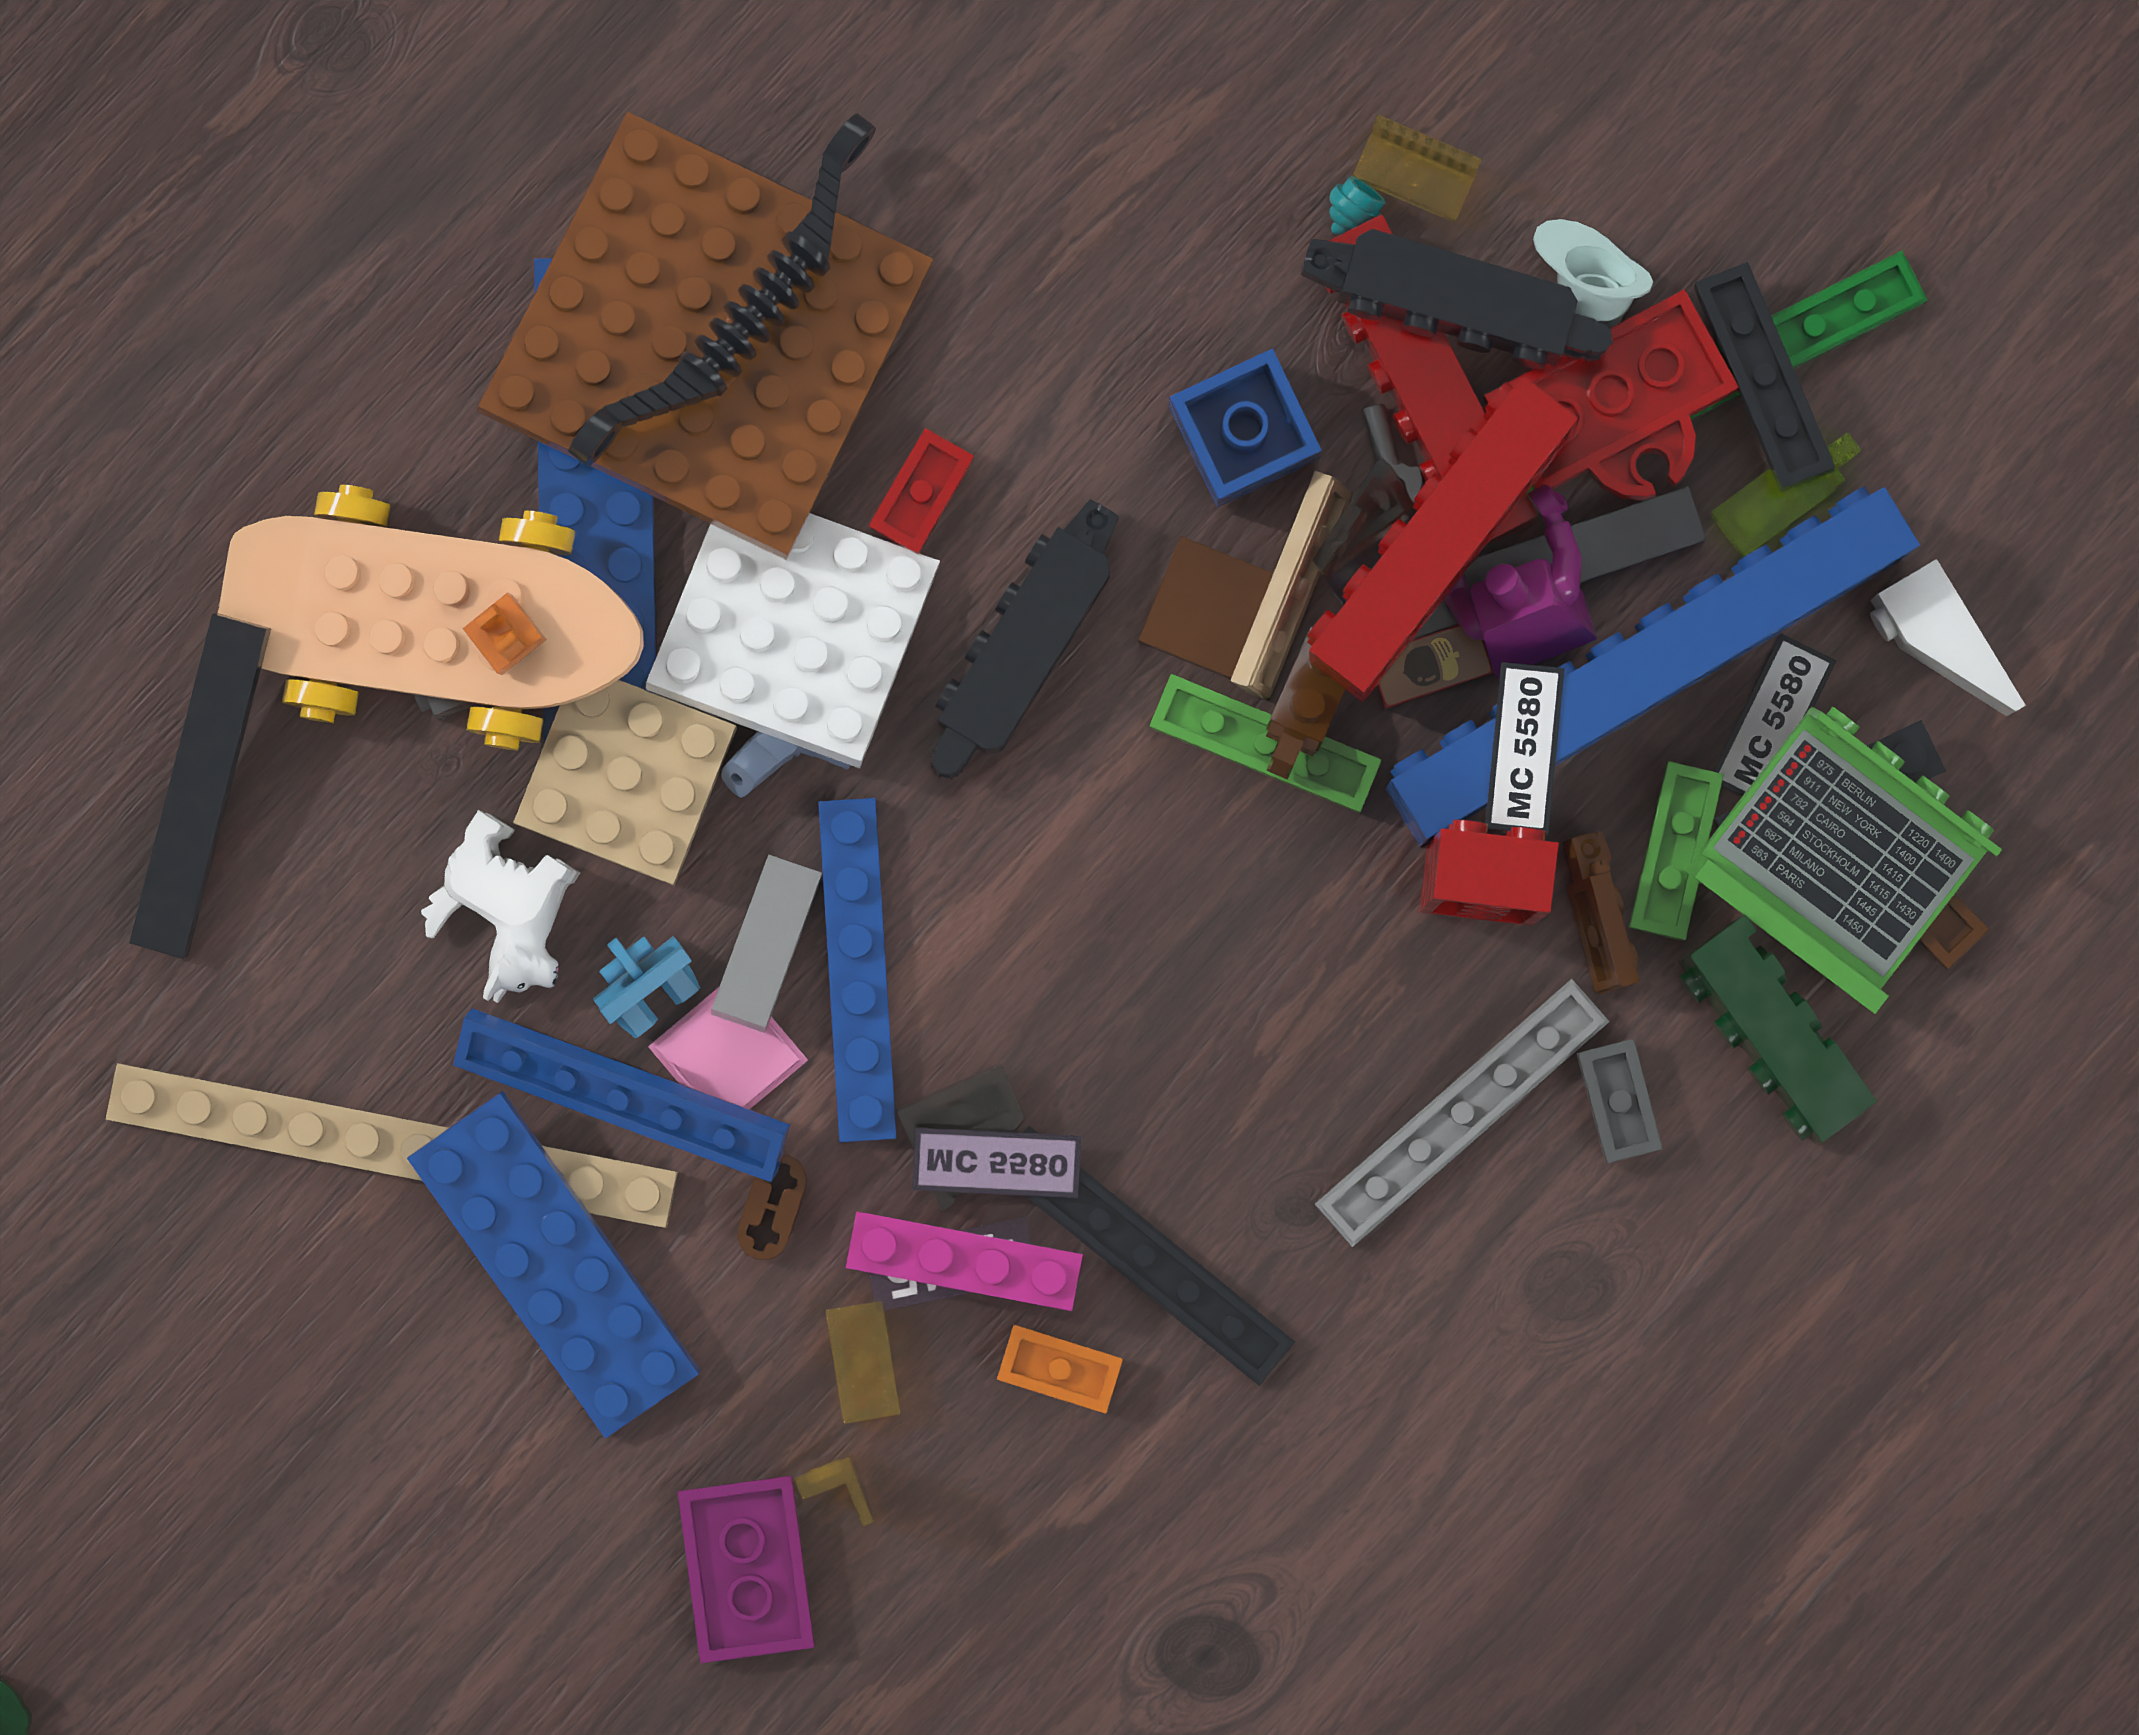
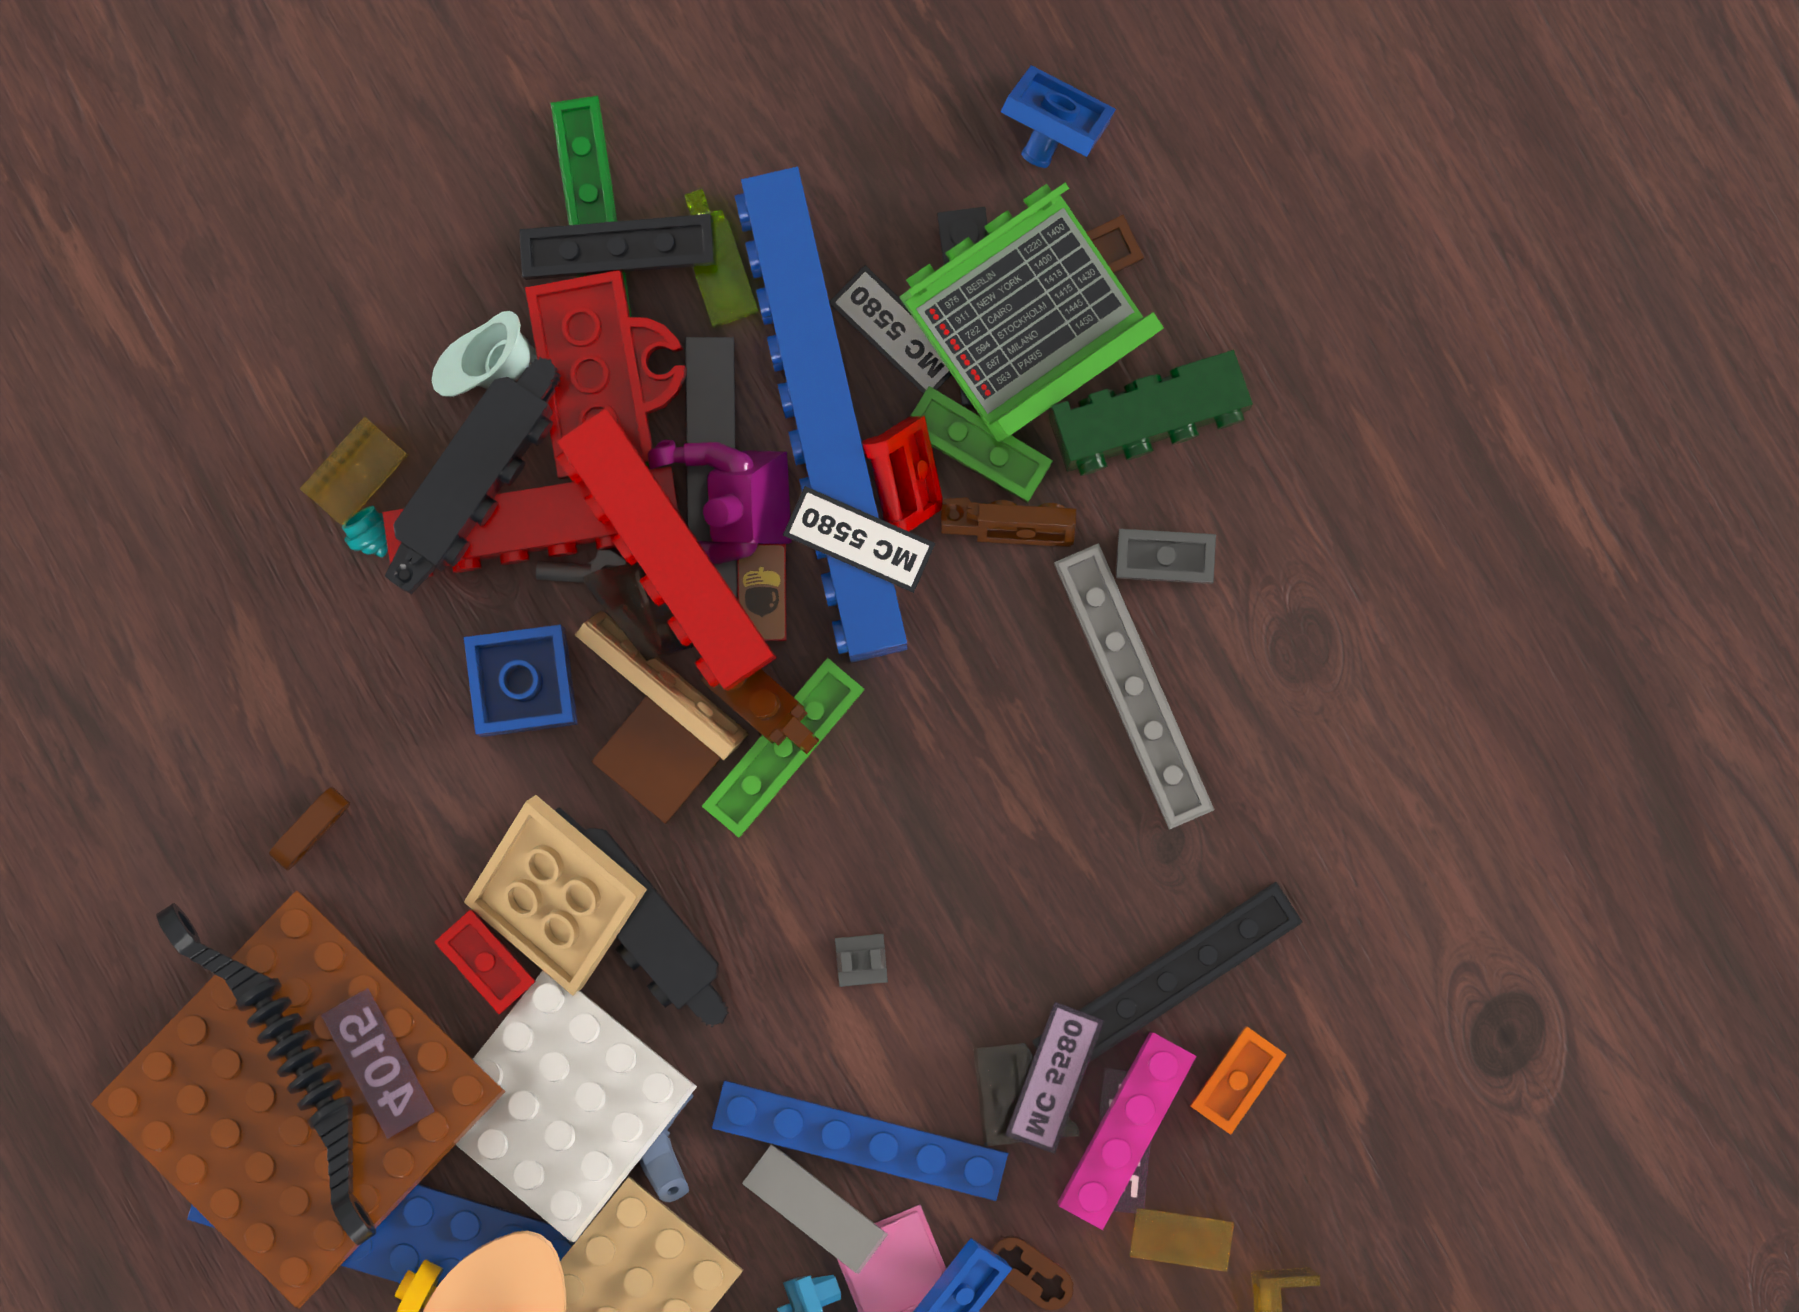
camera: 70 degrees left, 0 degrees up
(772, 408) = (377, 1063): none -> sticker
(1005, 250) = (309, 828): none -> reddish brown beam
(1020, 542) = (554, 895): none -> tan plate
(1057, 907) = (861, 960): none -> dark grey tile
(1489, 874) = (954, 603): red brick -> none
(1623, 786) = (905, 473): none -> red plate
(1938, 630) = (867, 175): white slope -> none
(2076, 818) = (1057, 116): none -> blue tile

